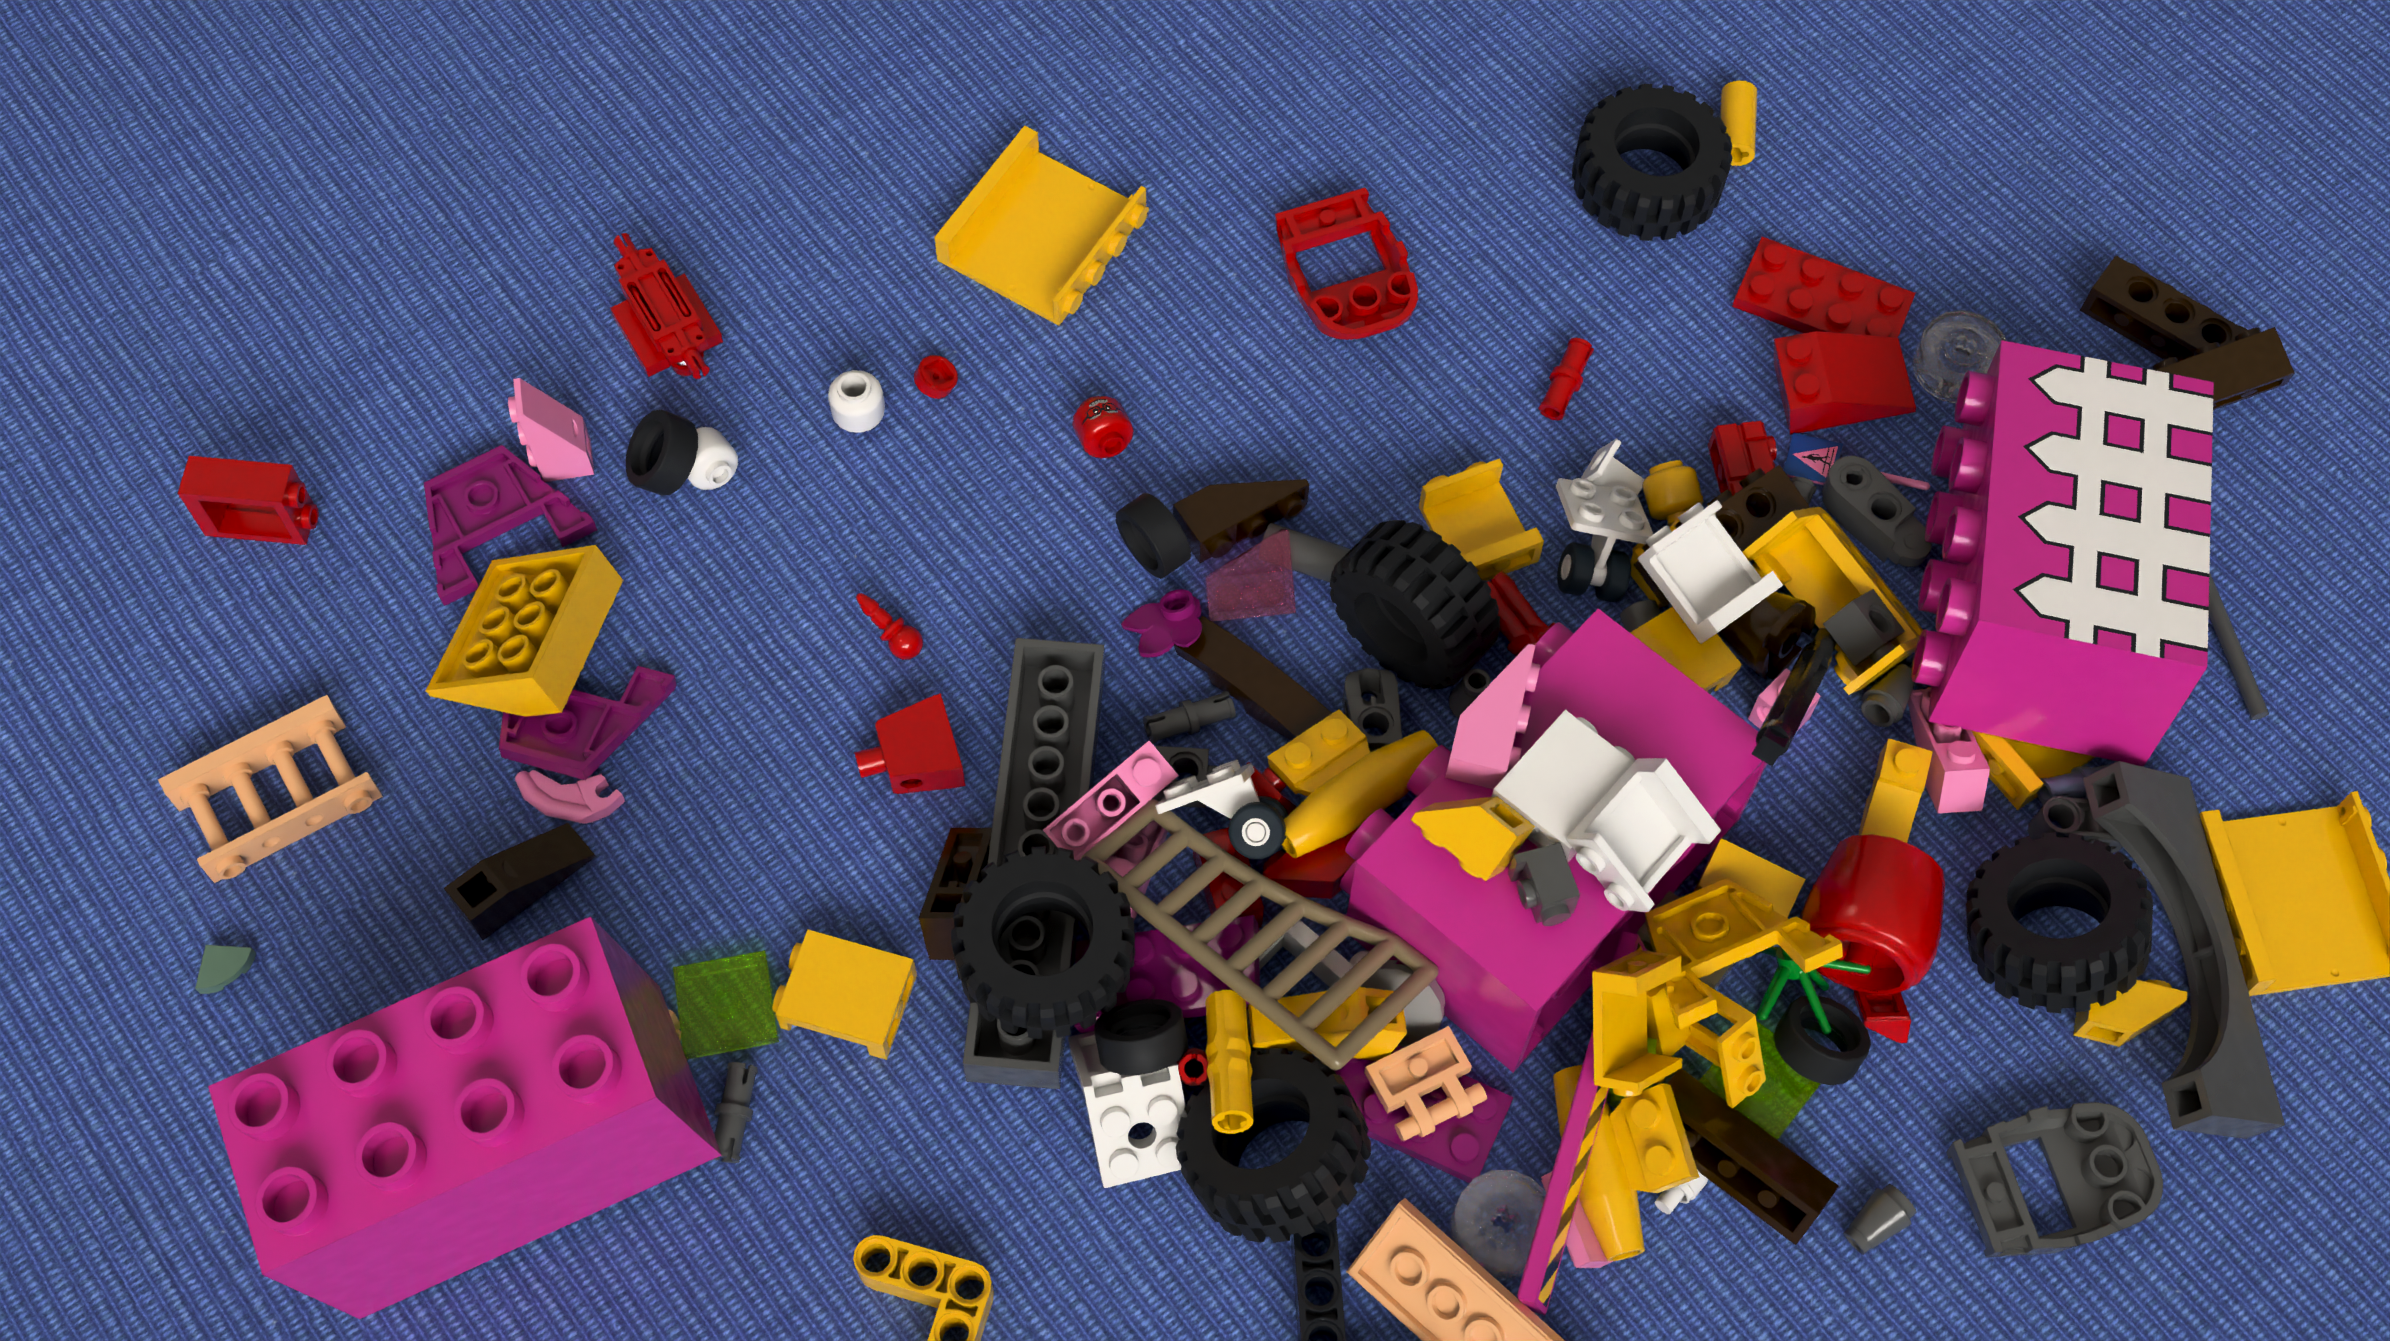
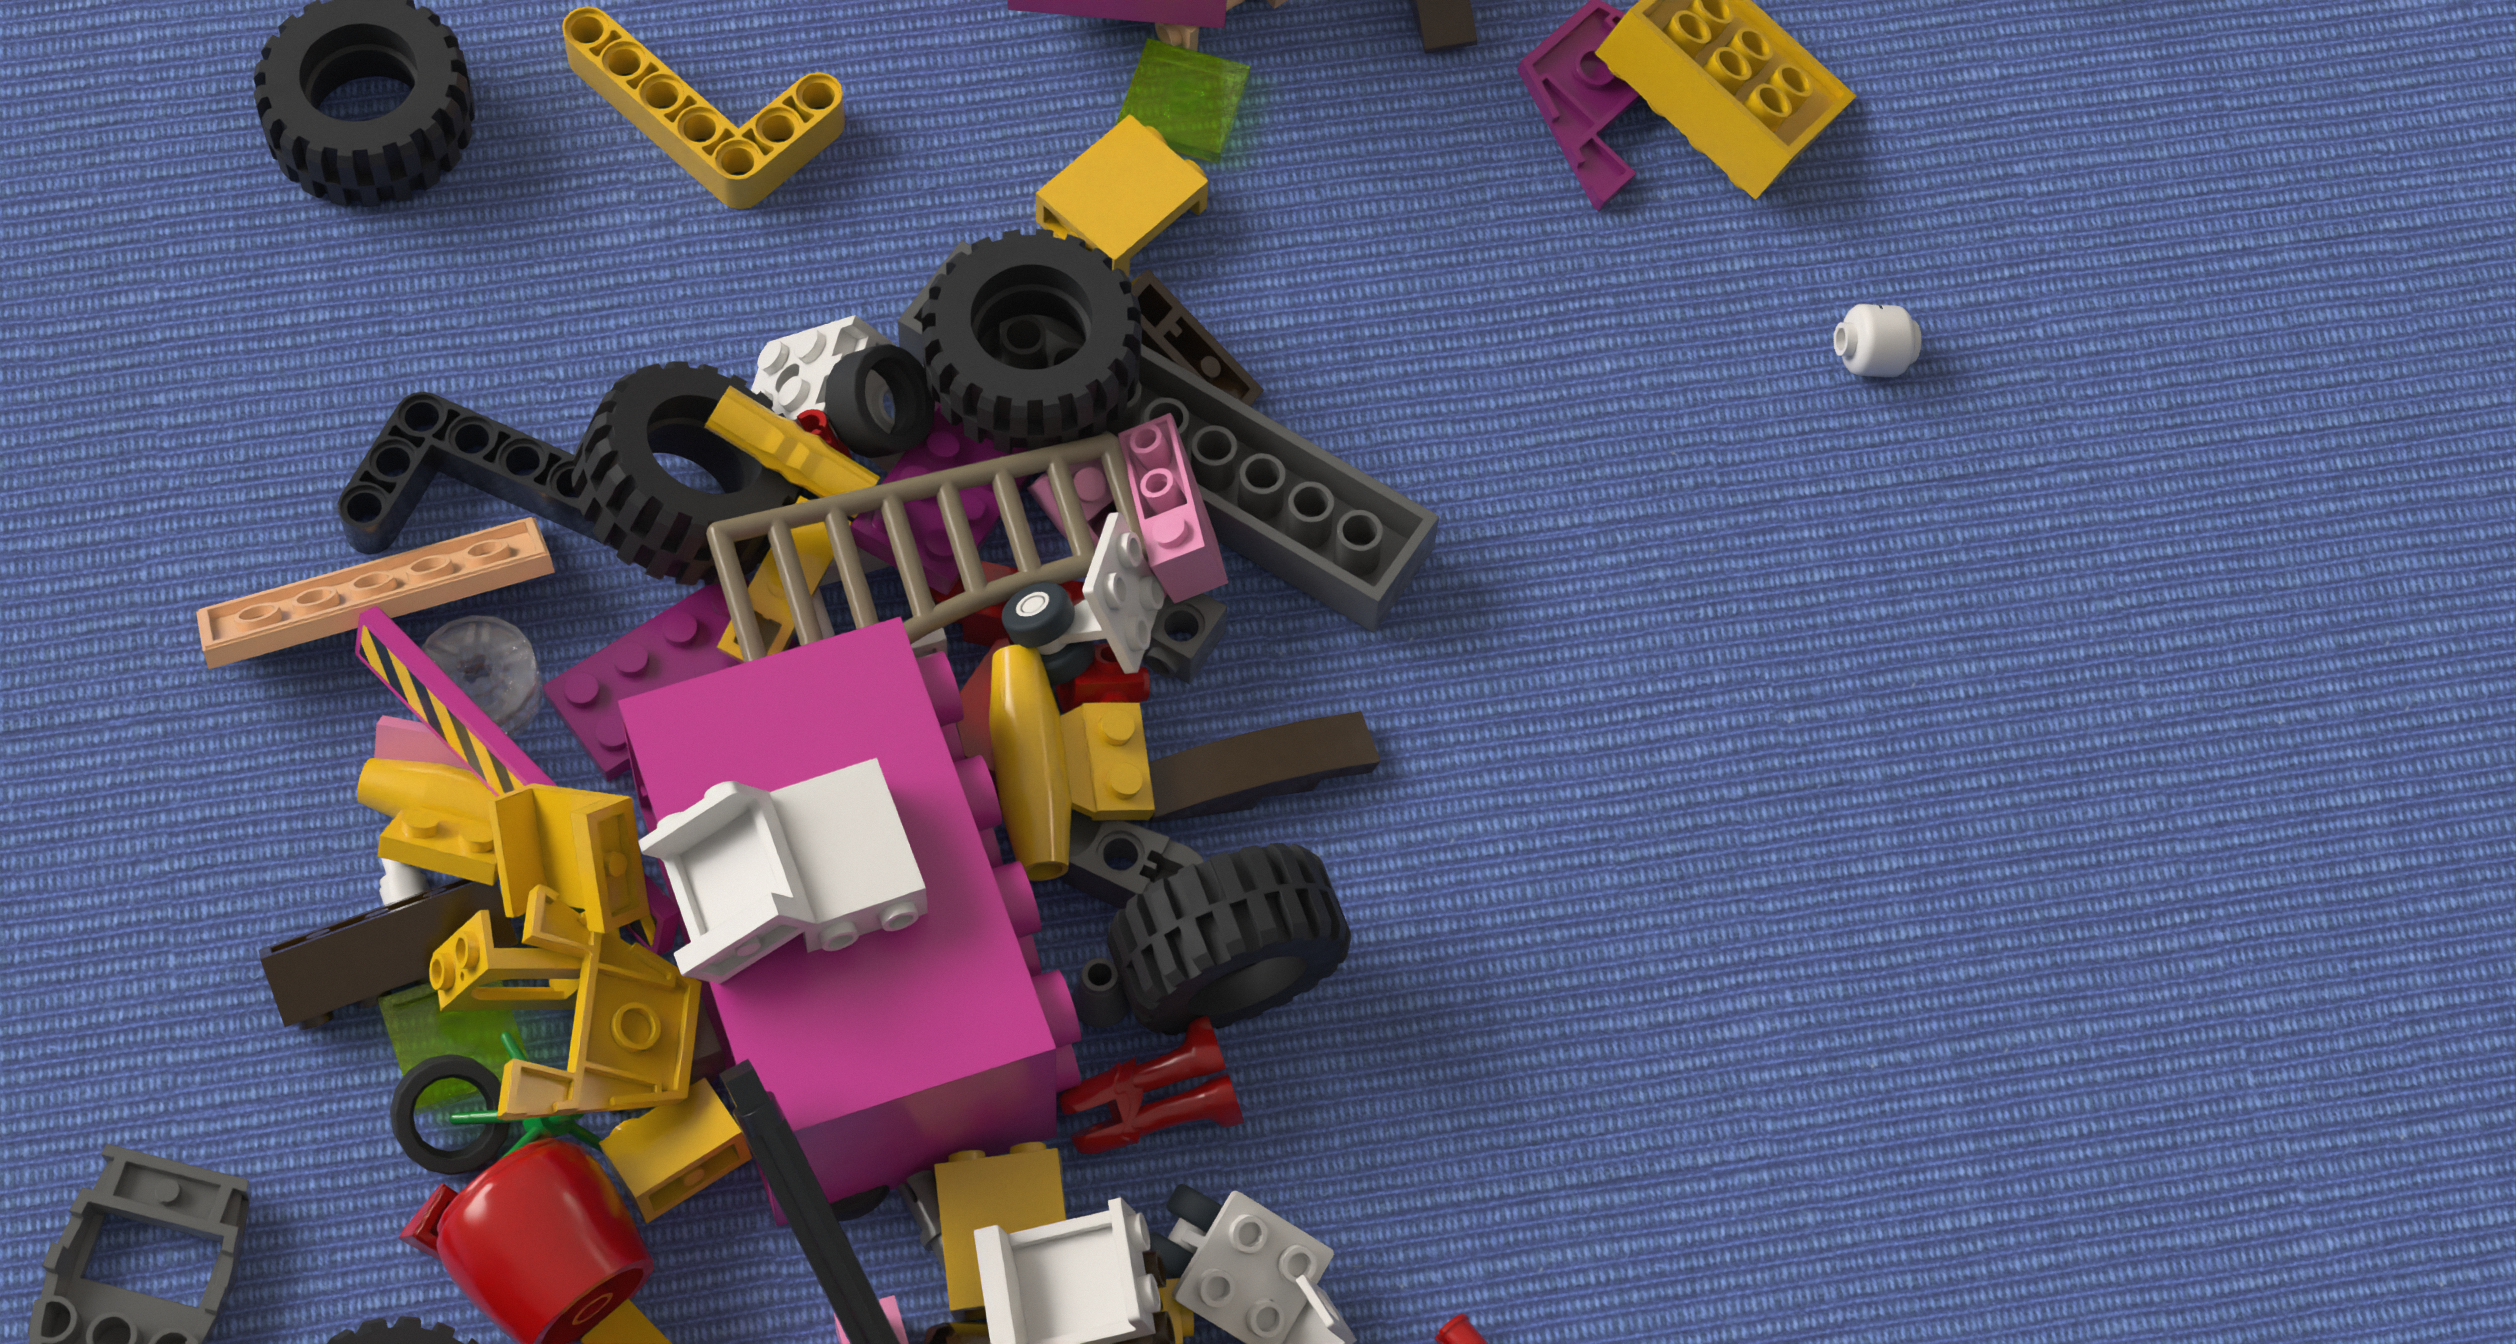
camera: 115 degrees right, 0 degrees up
(484, 502) = (1935, 110): magenta wing -> none
(552, 434) = (1976, 175): bright pink slope -> none
(568, 802) = (1499, 58): bright pink piece -> none
(661, 314) = (2106, 373): red piece -> none
(661, 452) = (1899, 286): black tyre -> none
(734, 1110) = (1057, 55): dark grey pin -> none
(856, 401) = (1874, 520): white head -> none
(903, 640) = (1528, 446): red bar -> none
(915, 749) = (1372, 388): red torso -> none
(935, 376) = (1876, 633): red tile -> none
(1038, 230) = (2053, 859): yellow panel -> none
(1102, 425) = (1702, 775): red head -> none
(1153, 535) = (1507, 741): black tyre -> none
(1166, 623) = (1390, 719): magenta plate -> none
(1189, 717) = (1256, 678): dark grey pin -> none
(1232, 512) = (1503, 846): dark brown slope -> none
(1253, 582) = (1387, 830): clear pink wing -> none
(1311, 554) = (1402, 914): dark grey piece -> none
(1357, 305) = (1736, 1175): red slope -> none
(1419, 1070) = (682, 651): light nougat plate -> none
(1476, 831) = (848, 721): yellow slope -> none
(1480, 520) = (1332, 1144): yellow panel -> none
(1488, 726) = (956, 811): bright pink slope -> none
(1545, 883) = (741, 758): dark grey brick -> none
(1880, 1218) = (228, 1066): dark grey cone -> none

